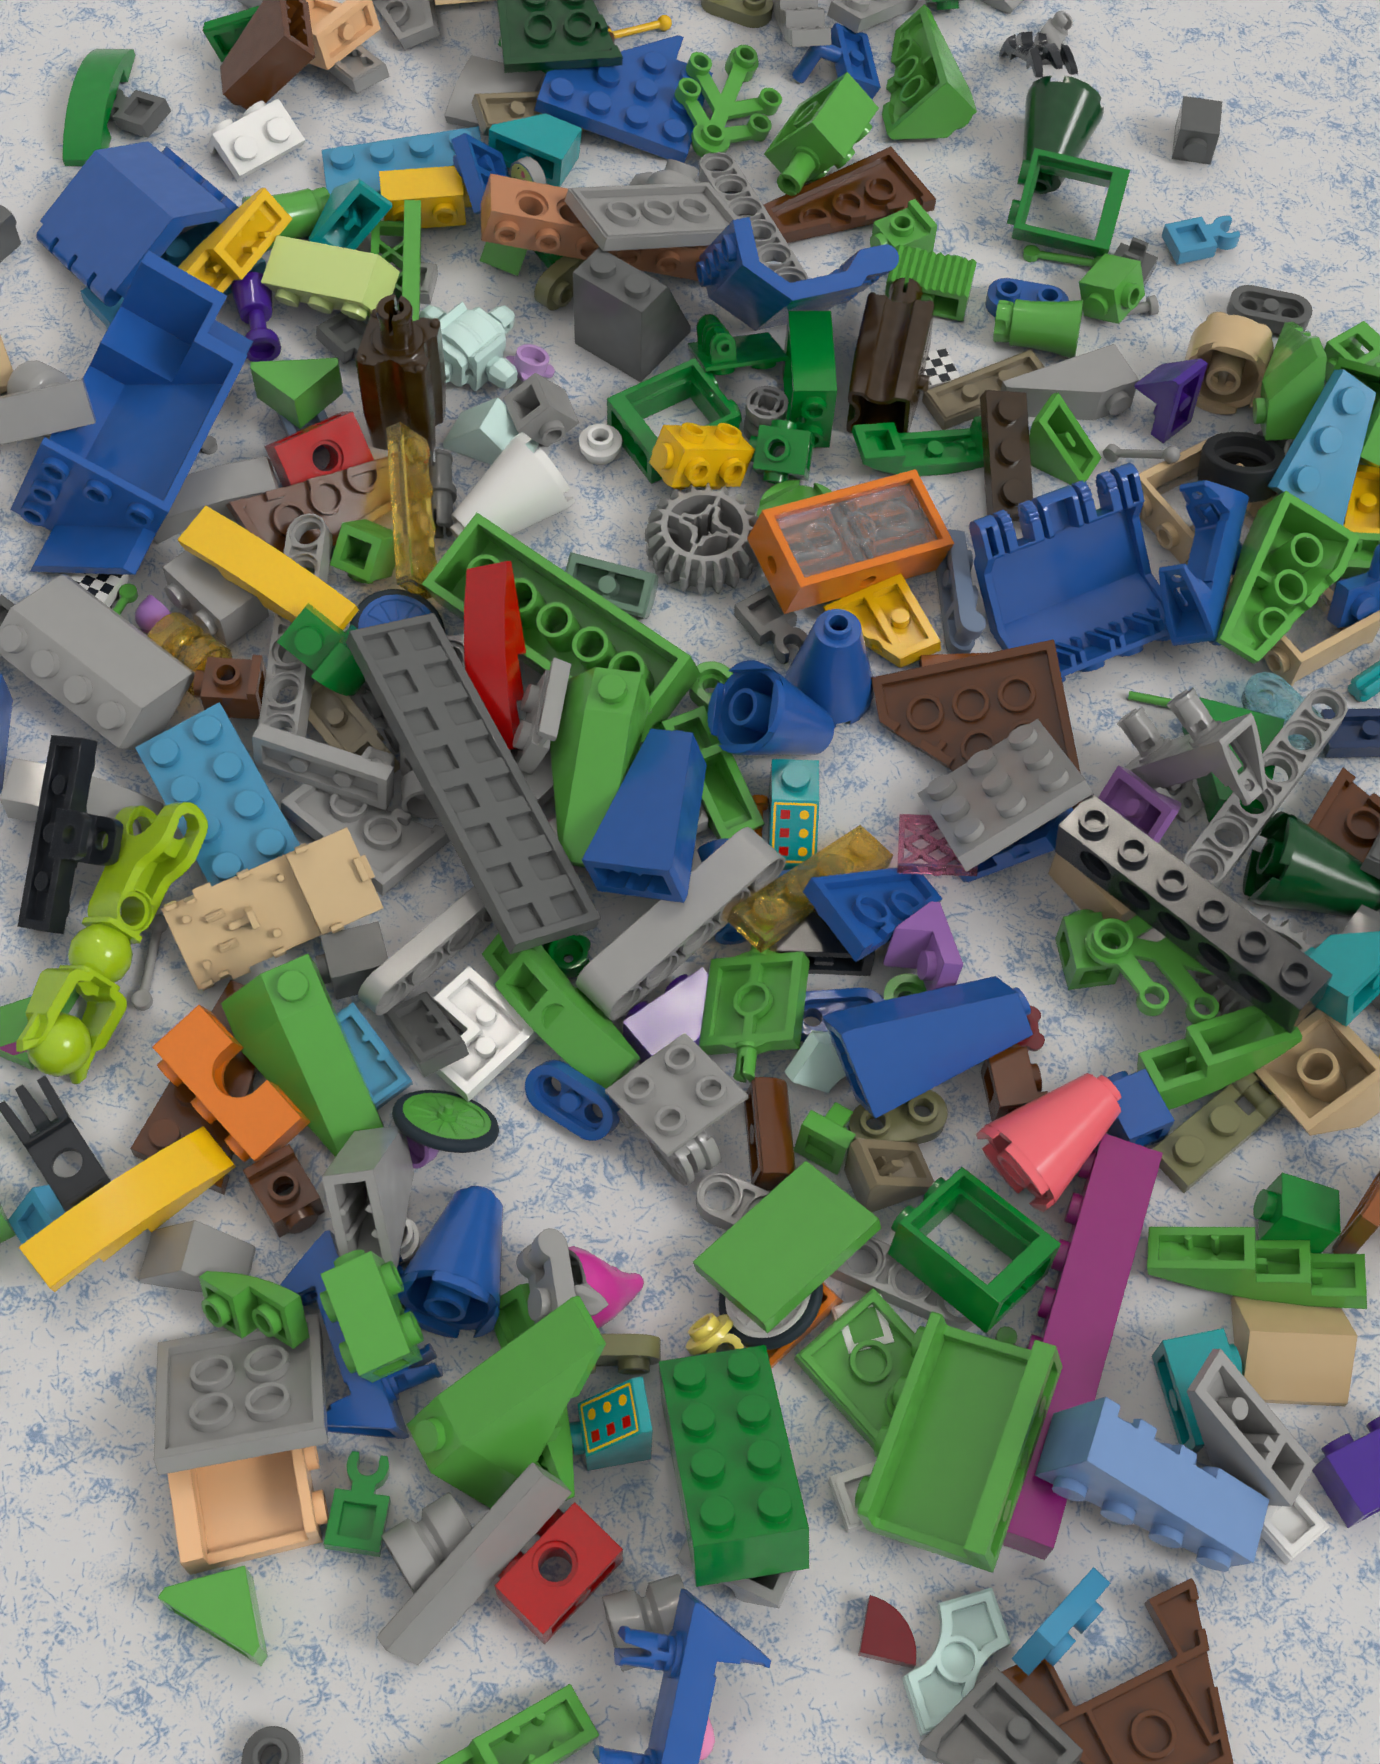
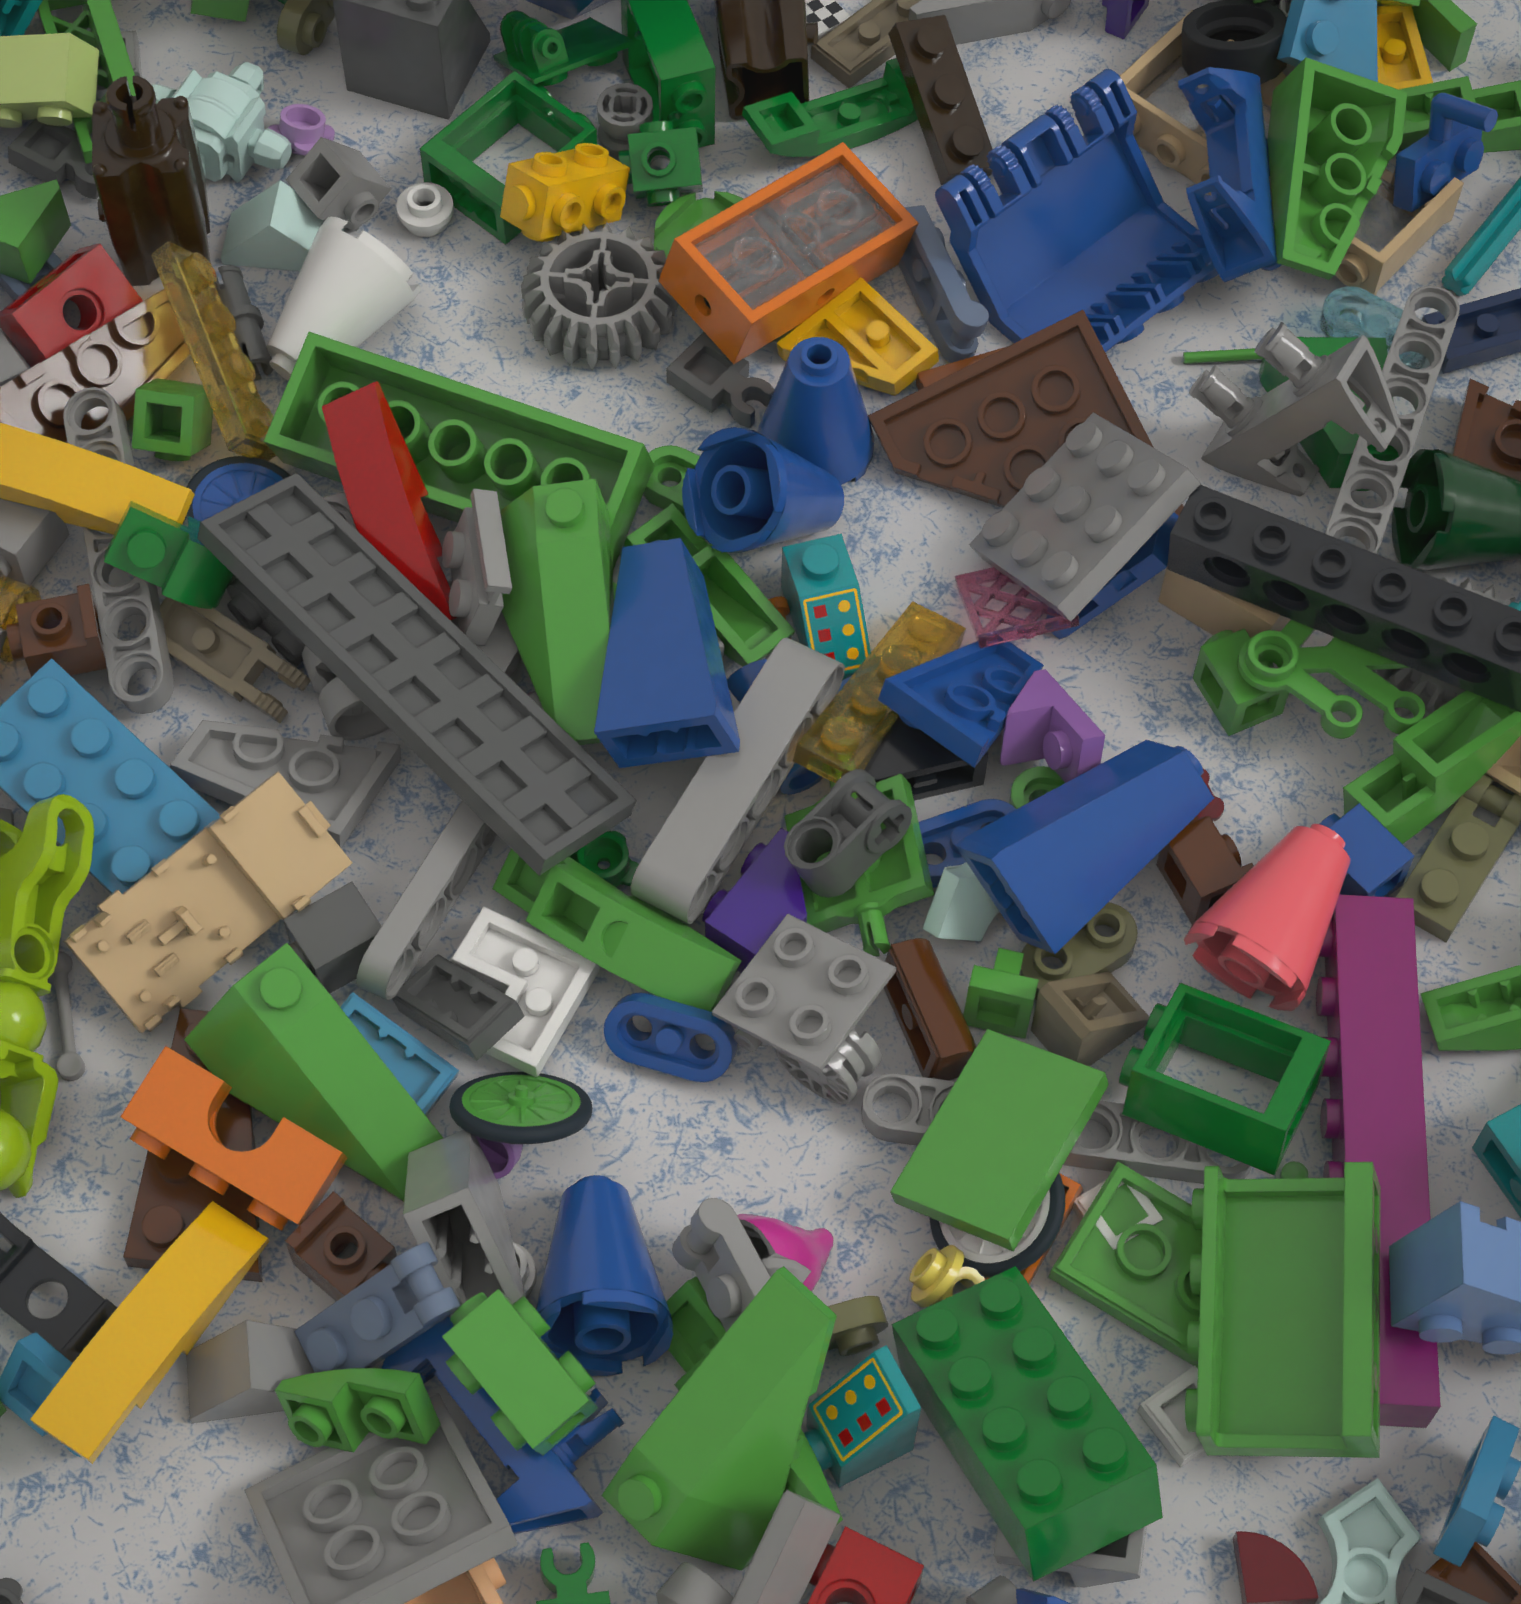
camera: 15 degrees left, 0 degrees up
(288, 1244) = (379, 1314): none -> sand blue plate
(357, 777) = (261, 707): light grey hinge -> none
(621, 585) = (520, 377): sand green brick -> none
(744, 985) = (848, 831): none -> dark grey piece
(1061, 444) = (1004, 69): bright green slope -> none
(1113, 453) = (1068, 64): light grey hinge -> none
(1139, 803) = (1249, 481): medium lavender slope -> none

